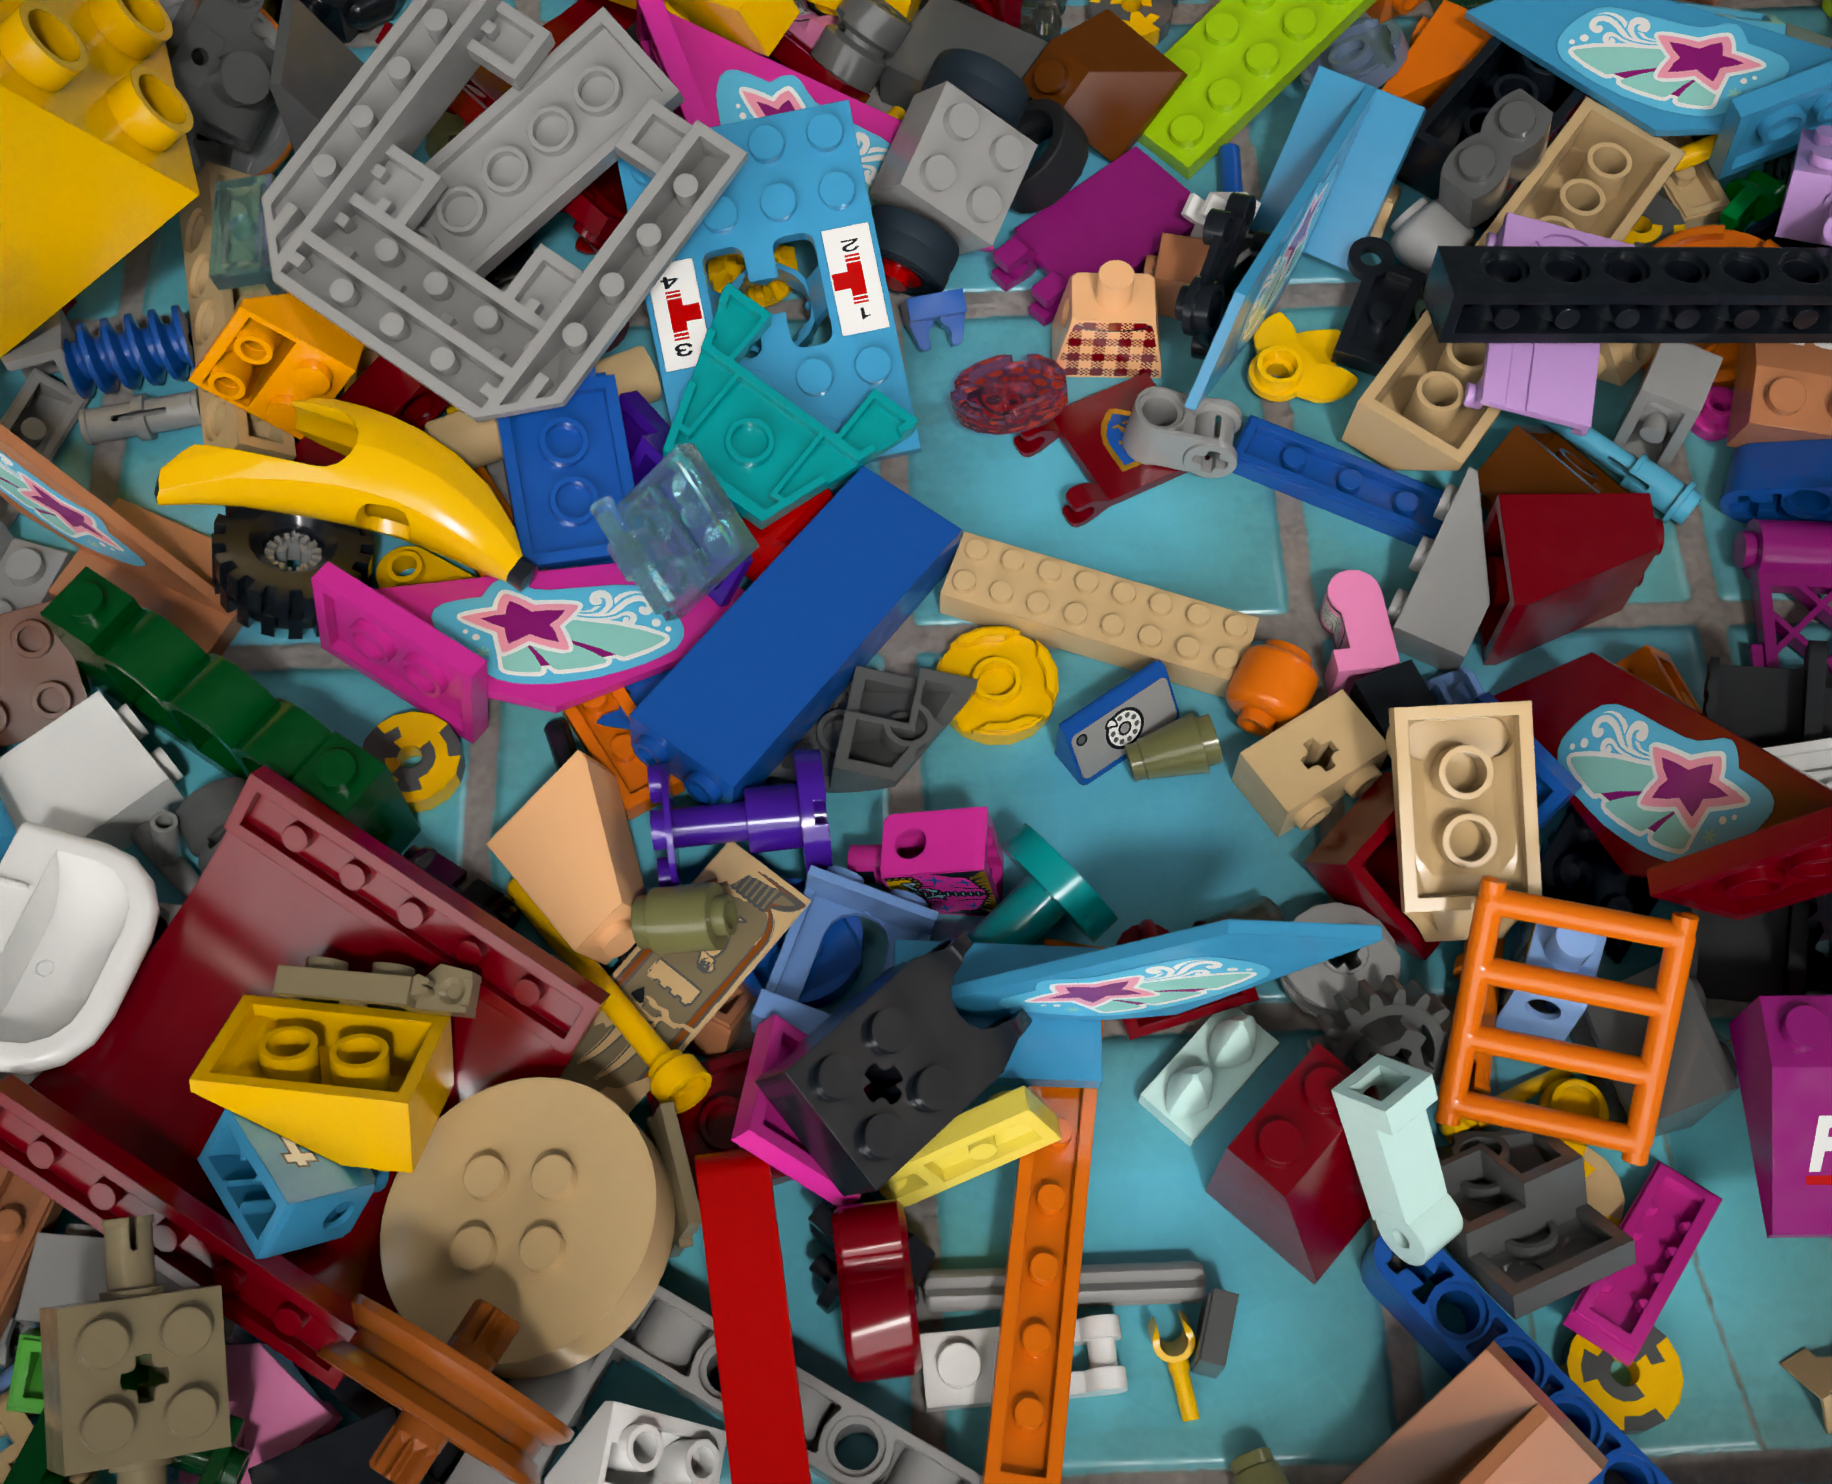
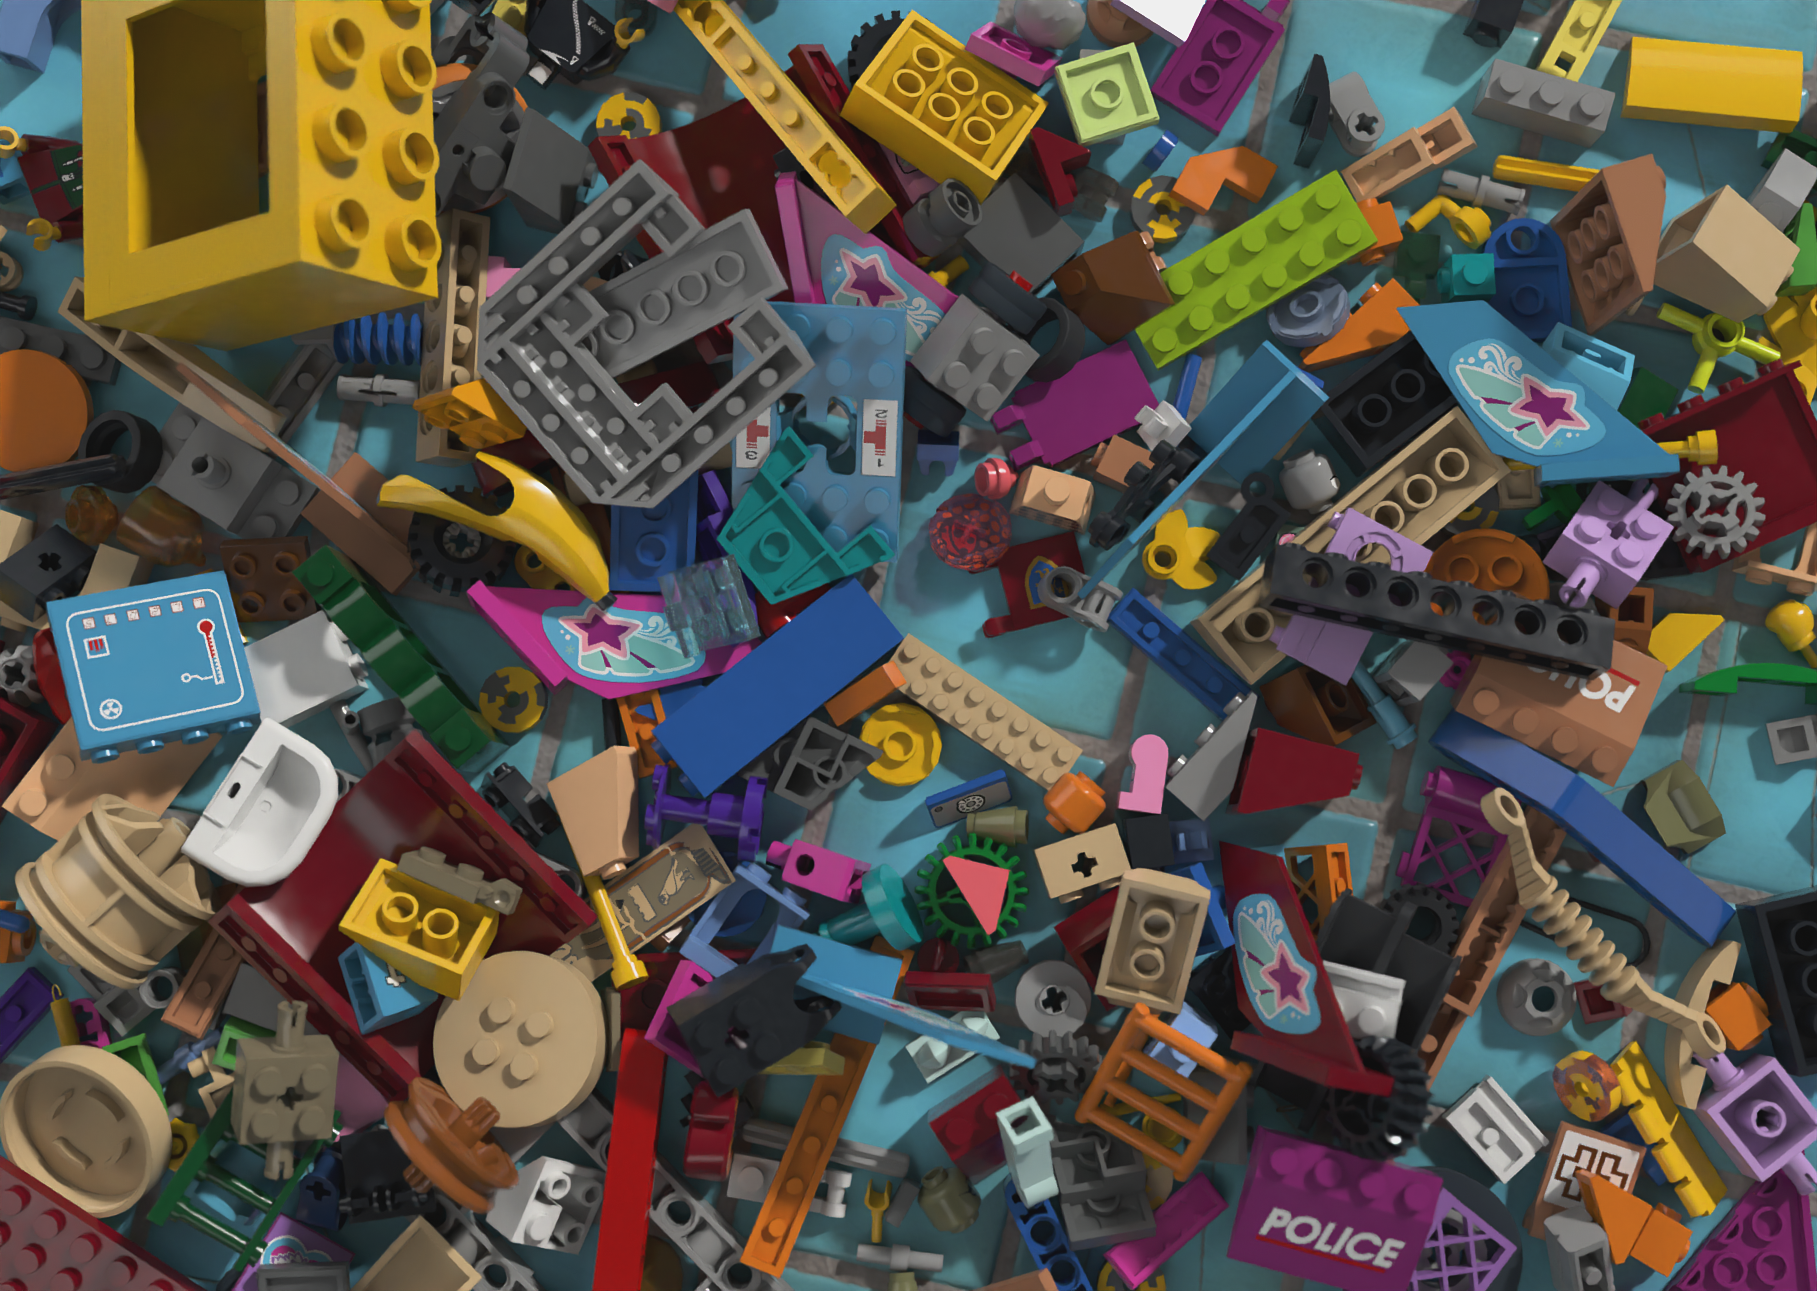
camera: 20 degrees right, 20 degrees up
(239, 235) = (472, 279): clear light blue panel -> none
(684, 918) = (655, 872): olive brick -> none
(927, 617) = (865, 693): none -> orange piece
(1019, 330) = (994, 478): none -> coral plate
(1180, 808) = (982, 888): none -> coral slope
(1199, 812) = (943, 899): none -> green gear
(1239, 1432) = (899, 1257): none -> light grey bar
(1288, 1308) = (949, 1199): none -> olive head
(1500, 155) = (1350, 462): dark grey brick -> none

